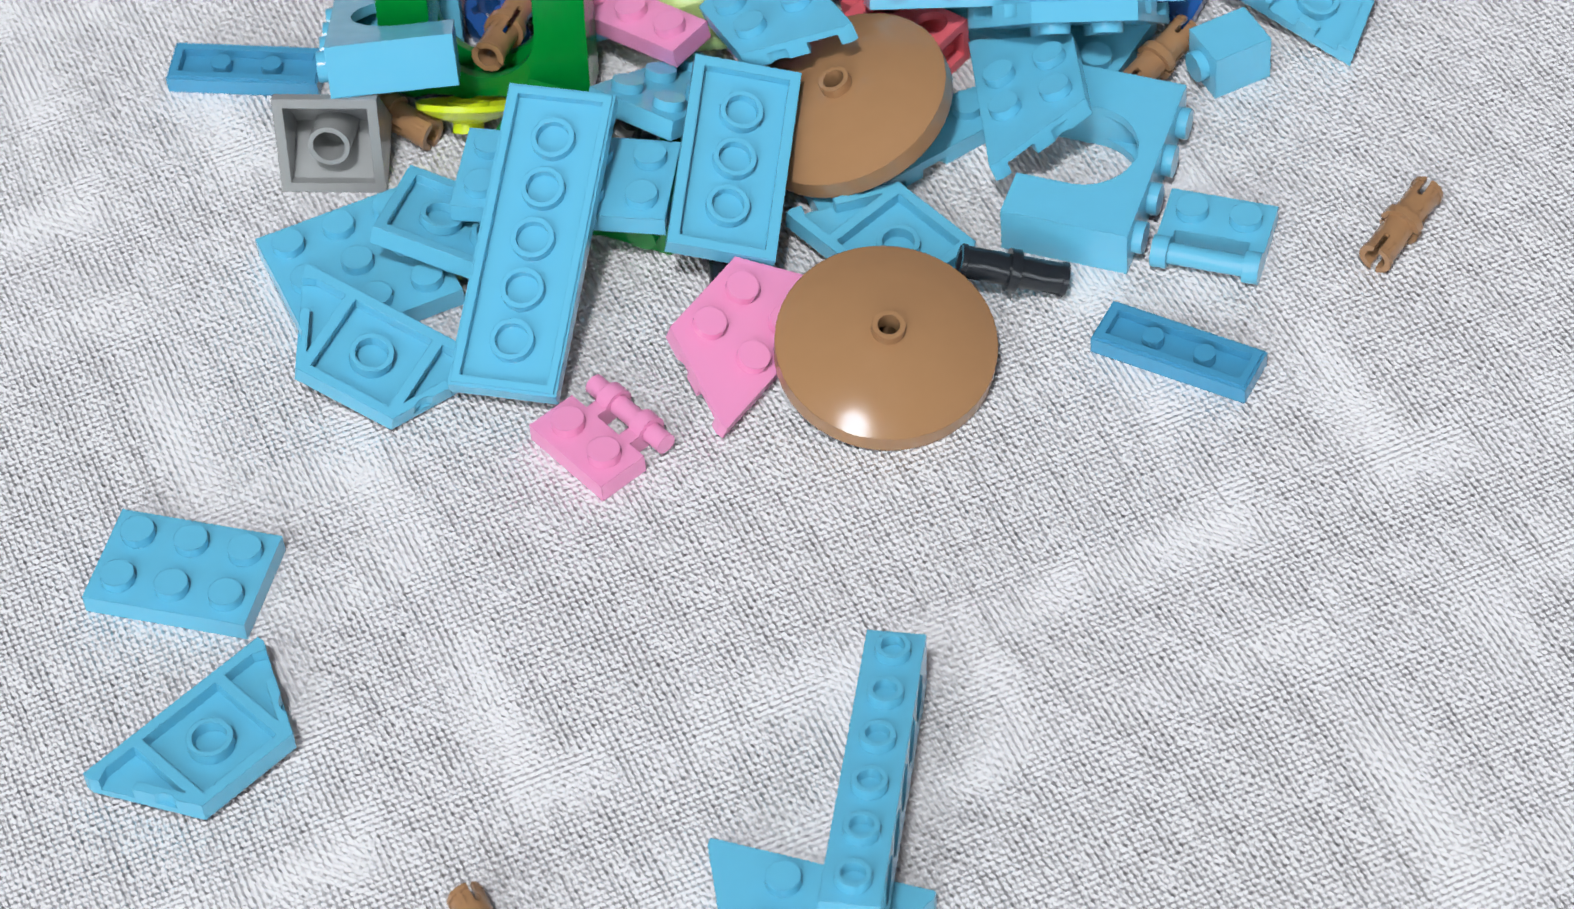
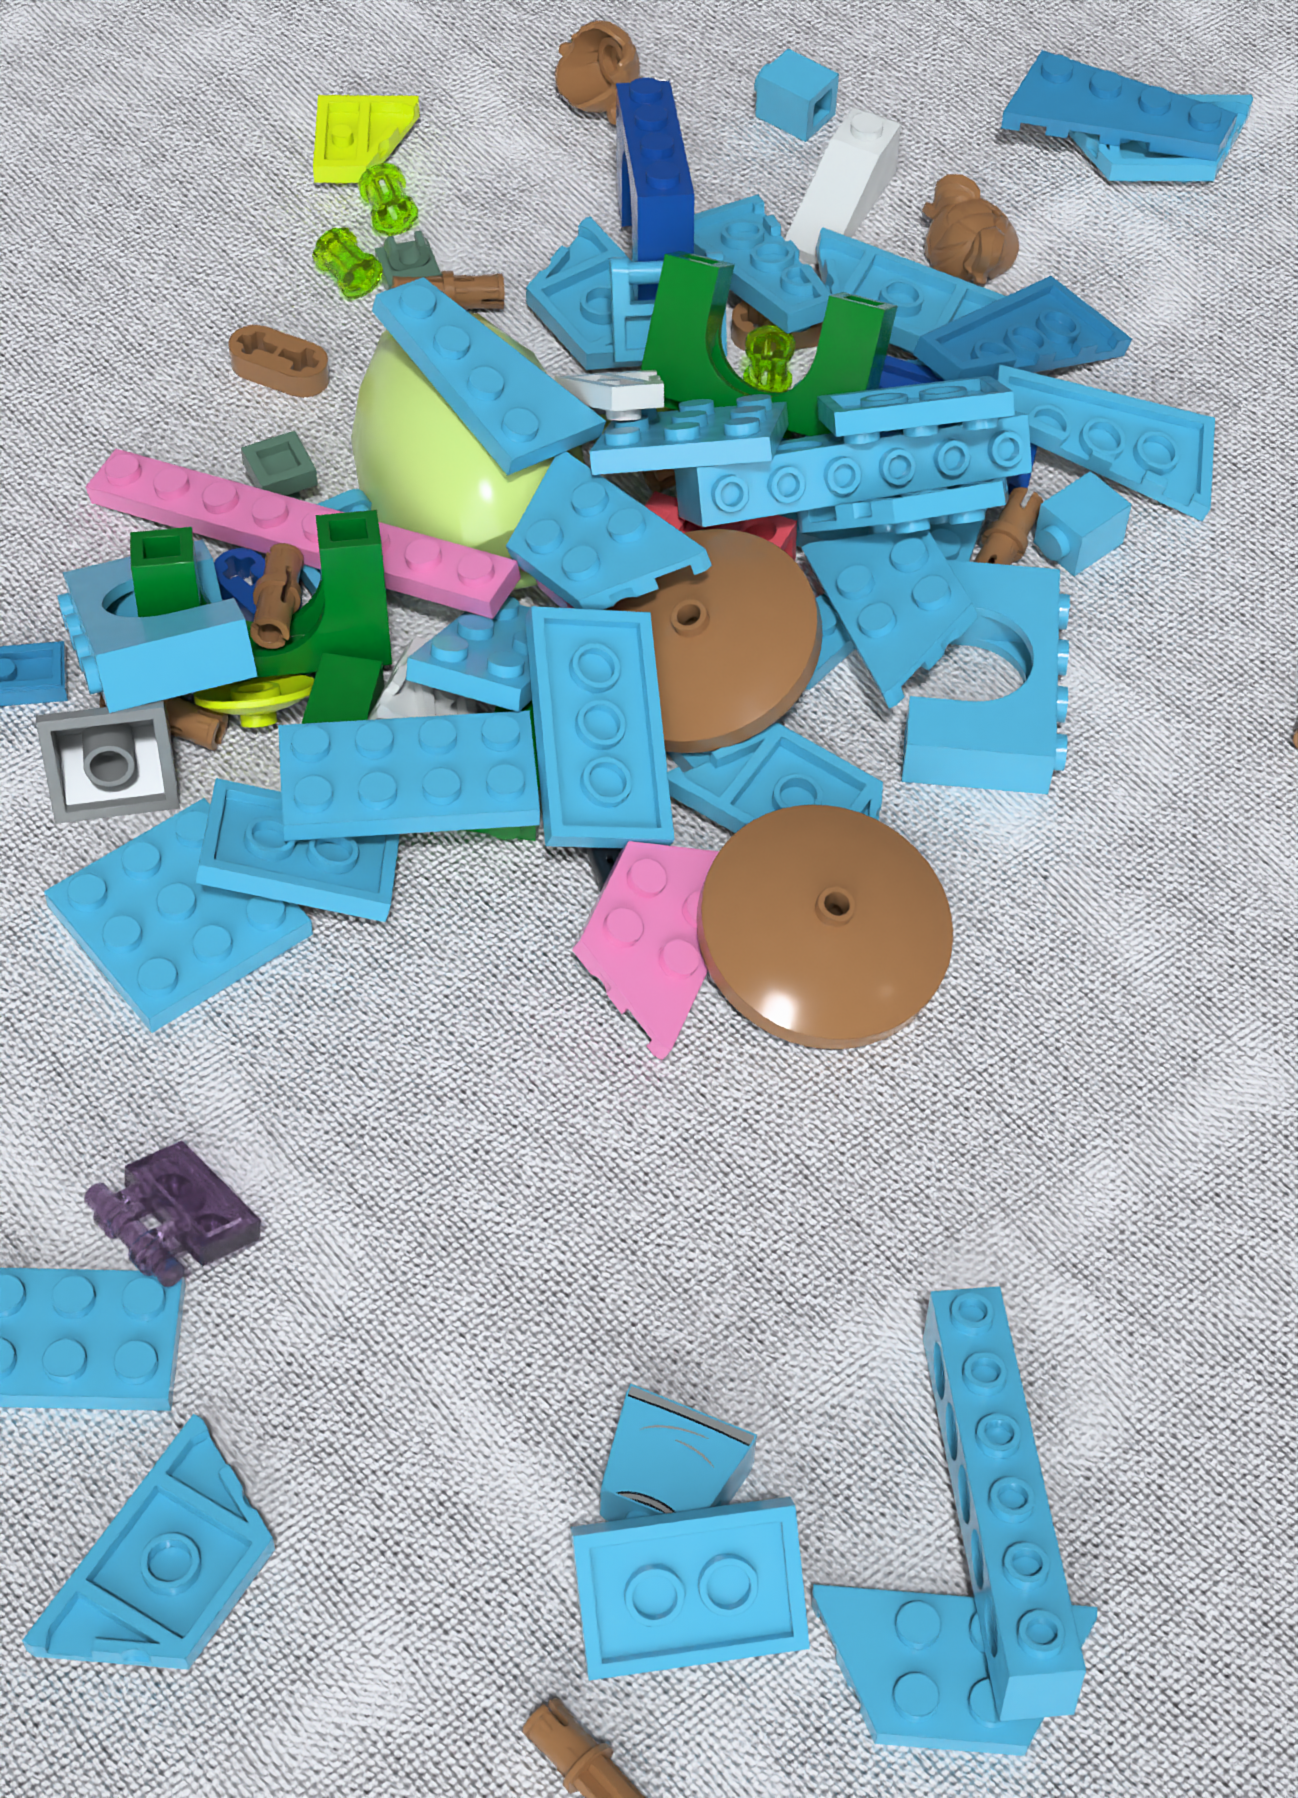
camera: 20 degrees left, 5 degrees up
(299, 488) = (188, 1201): none -> clear purple plate
(368, 352) = (231, 1019): medium azure wing -> none
(533, 244) = (396, 861): medium azure tile -> none
(591, 449) = (514, 1096): bright pink plate -> none
(604, 817) = (690, 1588): none -> medium azure plate
(619, 740) = (672, 1459): none -> medium azure torso
(1013, 270) = (936, 811): black pin -> none
(1179, 352) = (1139, 881): dark azure tile -> none
(1214, 235) = (1135, 726): medium azure plate -> none

